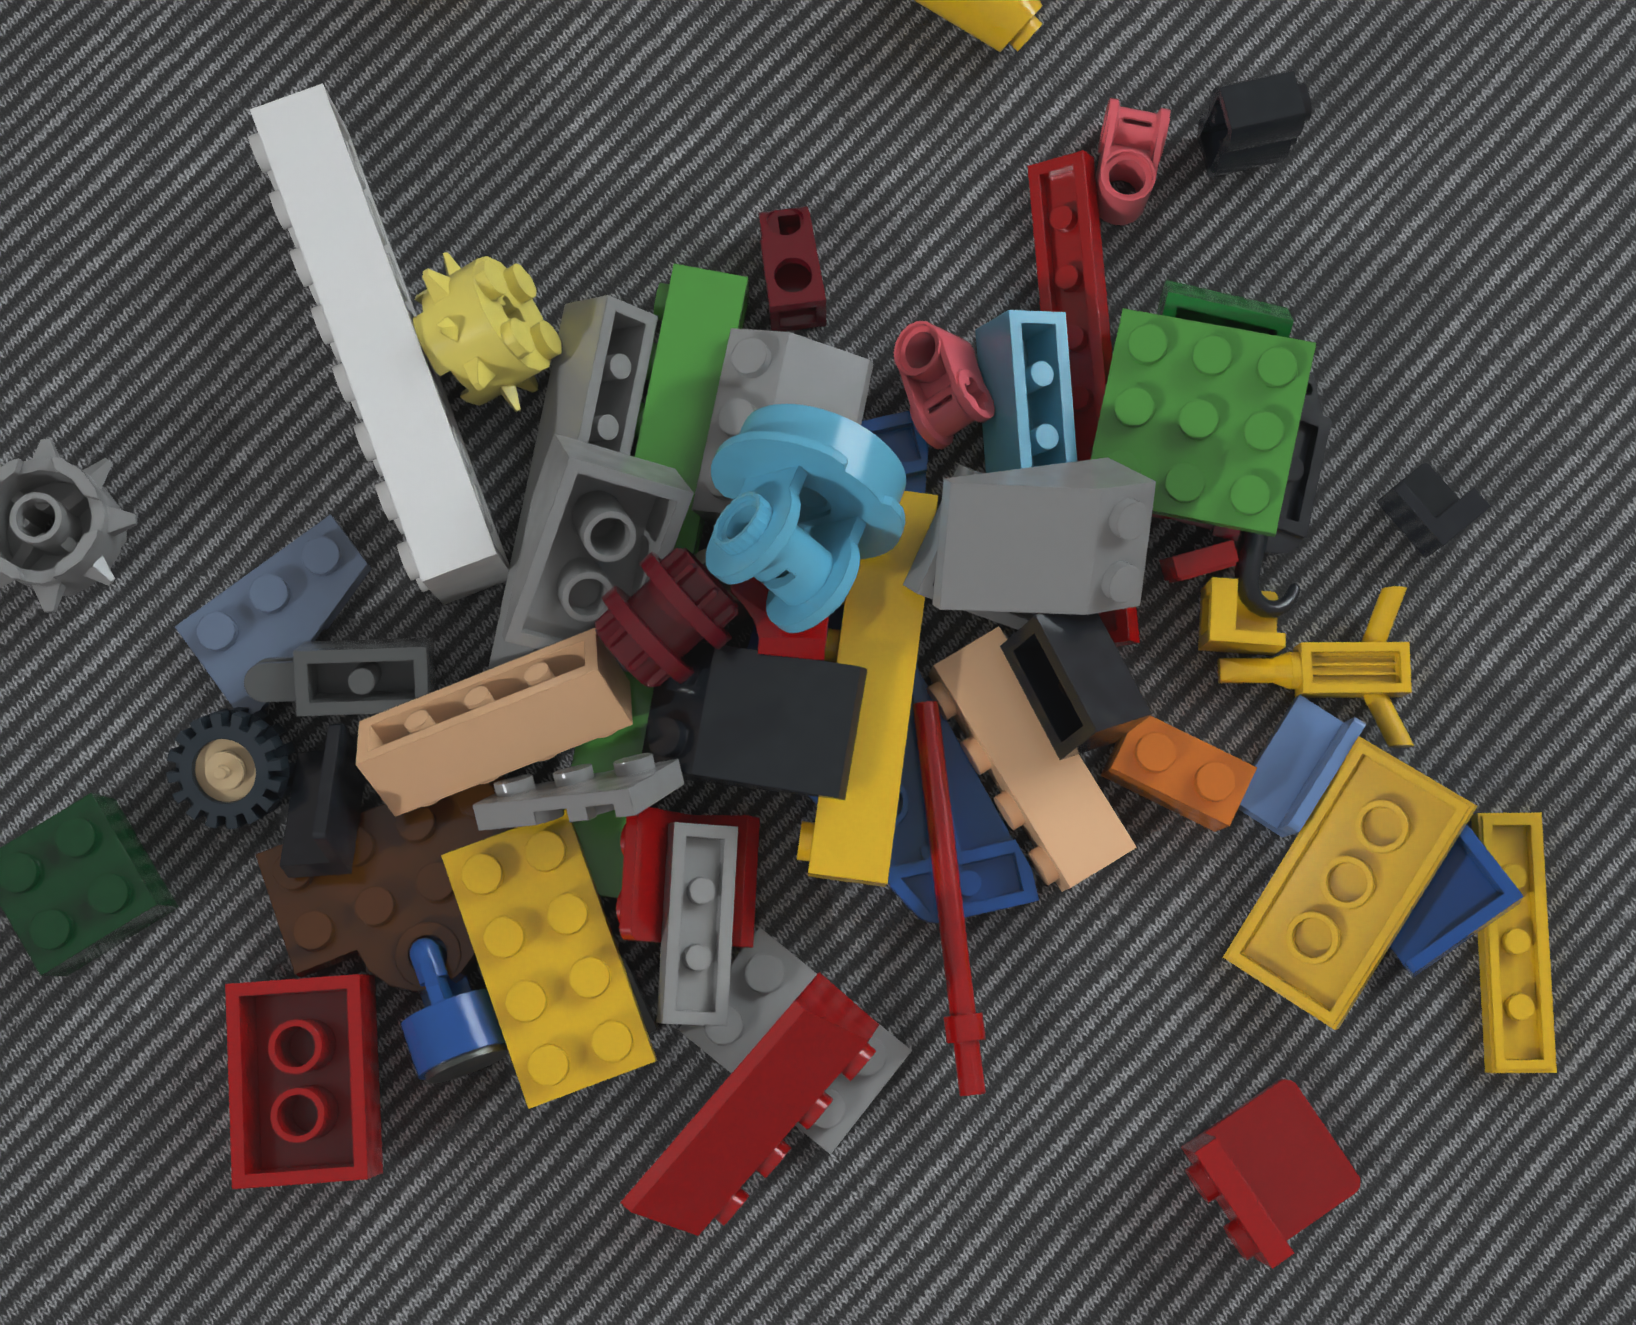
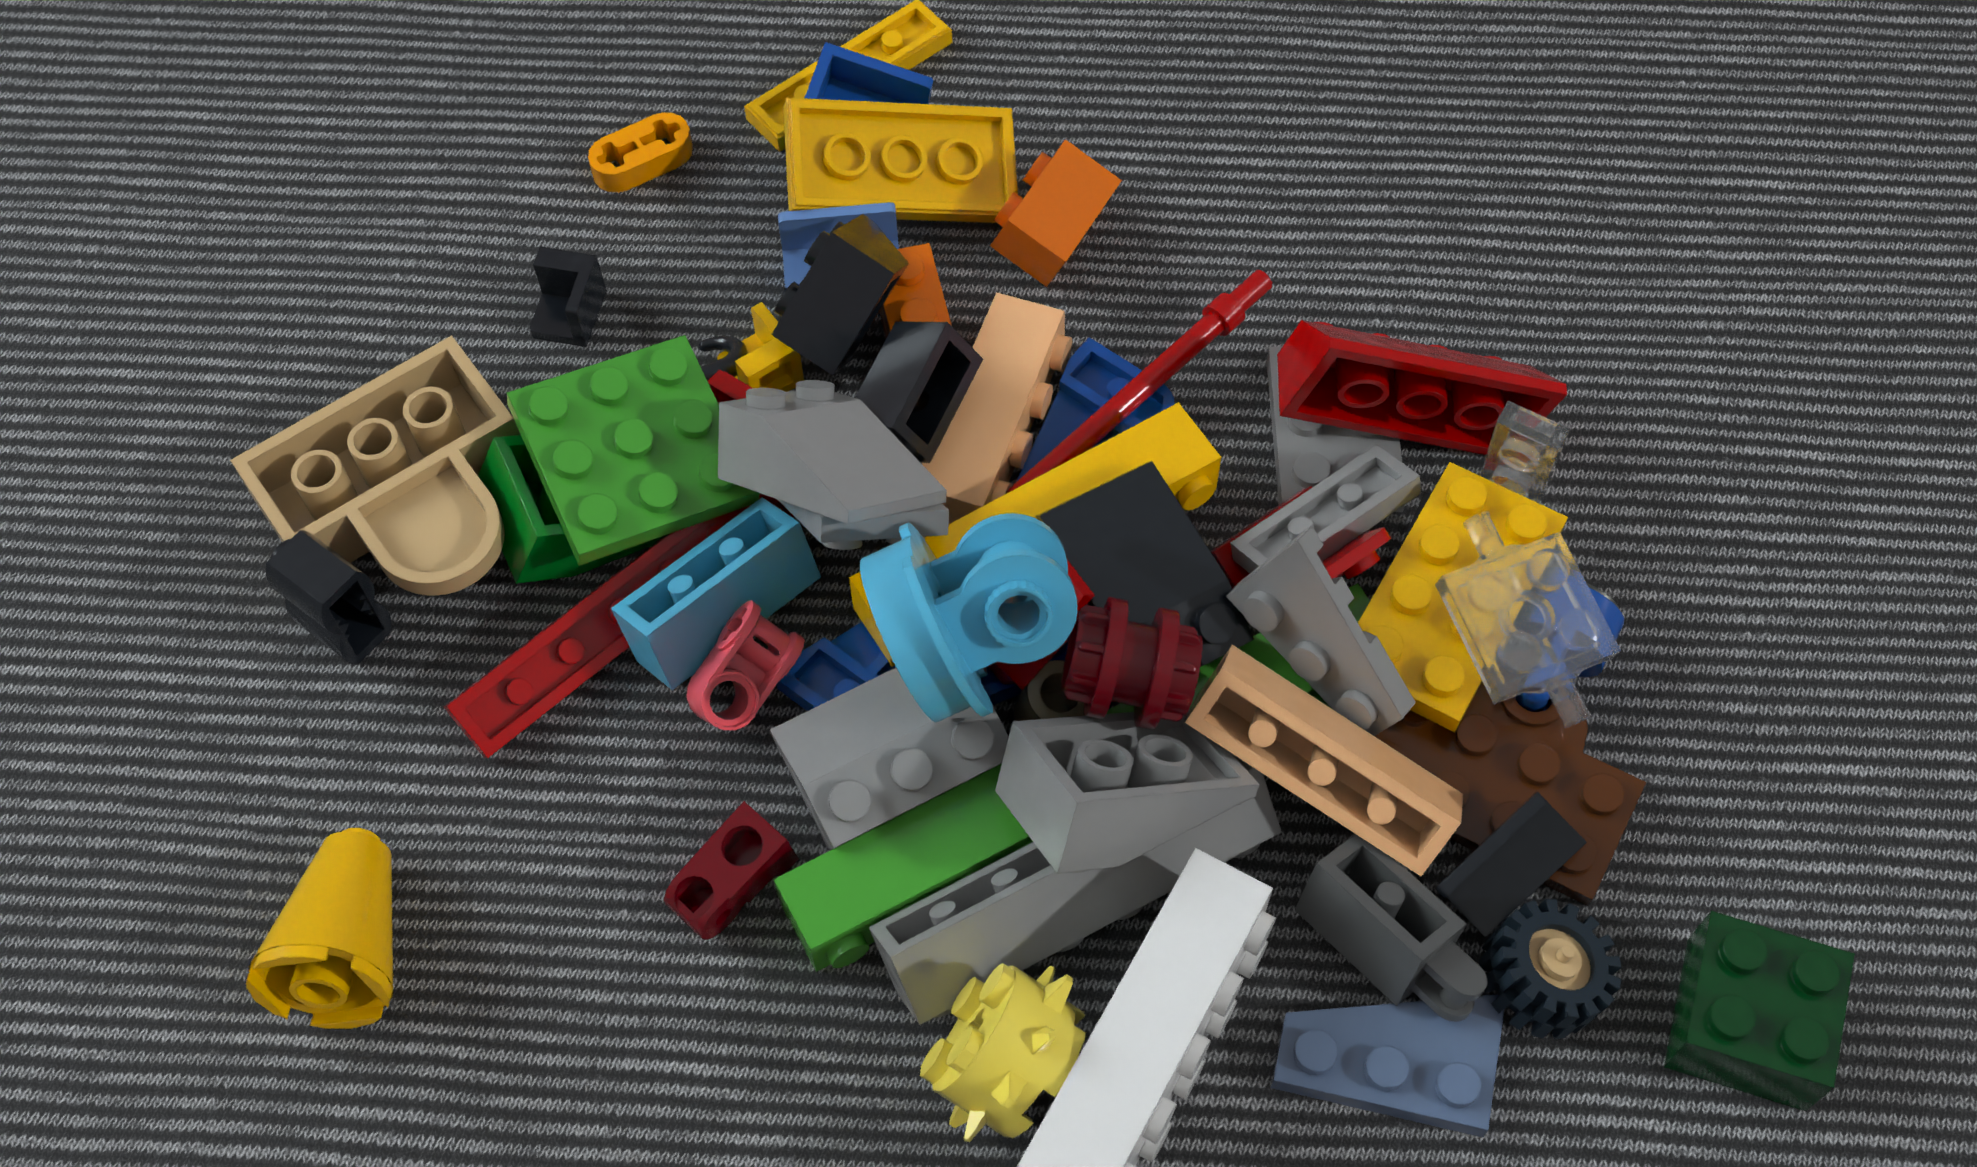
camera: 125 degrees left, 20 degrees down
(303, 1081) = (1708, 705): red brick -> none
(466, 974) = (1527, 618): none -> clear plate
(598, 1106) = (1524, 451): none -> clear plate
(1129, 152) = (418, 683): coral piece -> none
(1193, 979) = (1055, 212): none -> orange brick
(1228, 707) = (840, 294): none -> black slope
(1270, 1171) = (1139, 101): red bracket -> none
(1337, 238) = (393, 473): none -> tan brick
(1343, 669) = (731, 264): yellow piece -> none
(1573, 687) = (640, 152): none -> light orange beam

